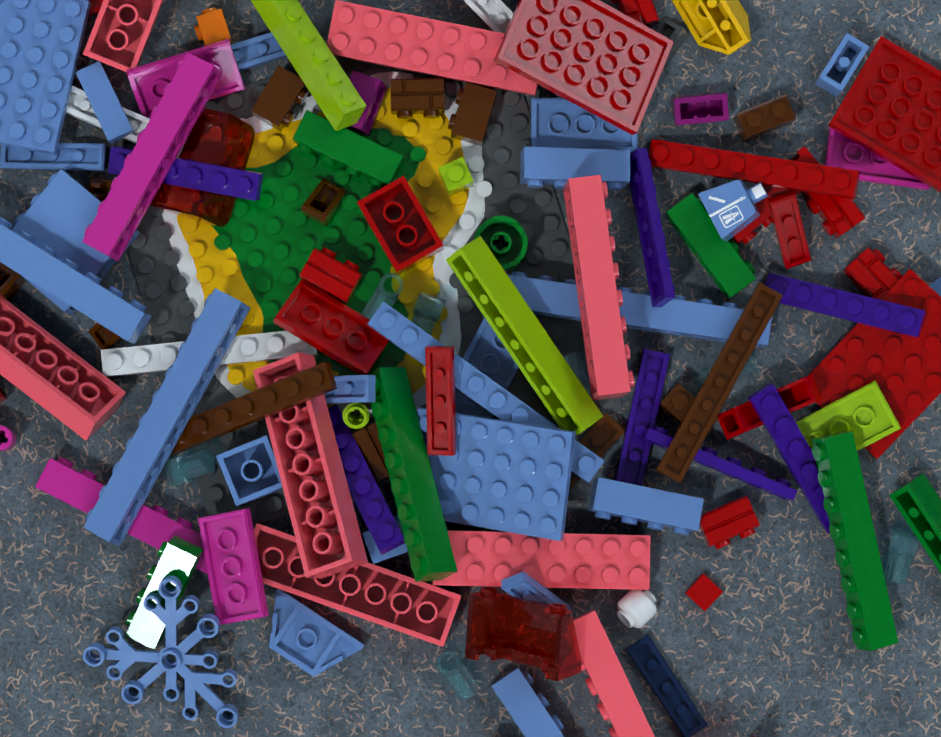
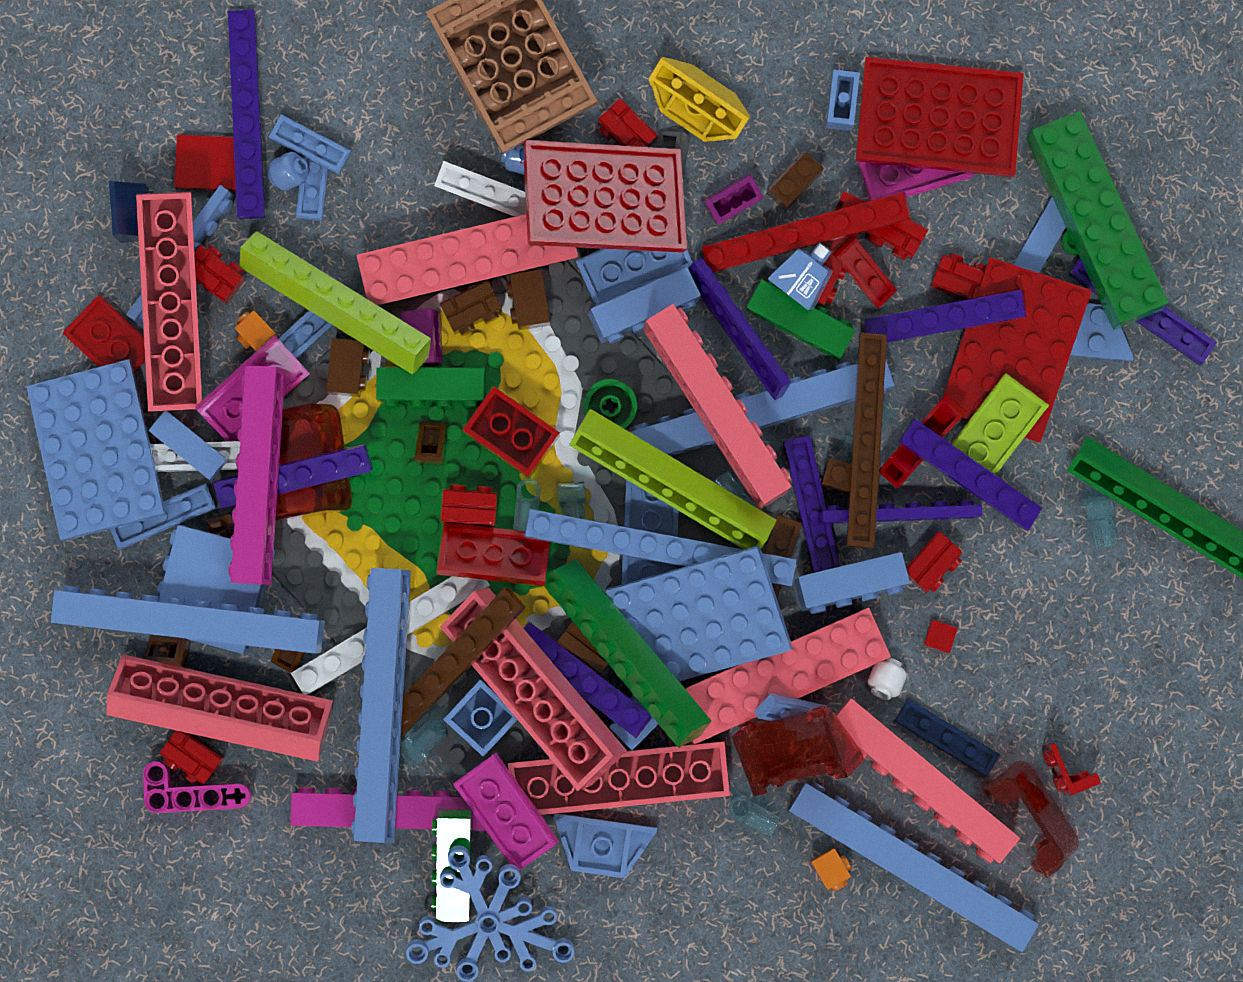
camera: 25 degrees left, 0 degrees up
(352, 389) = (540, 601): medium blue plate -> none
(355, 420) = (553, 628): lime cone -> none
(440, 400) = (624, 574): red tile -> none
(455, 176) = (540, 364): lime brick -> none
(854, 540) = (1054, 526): green brick -> none

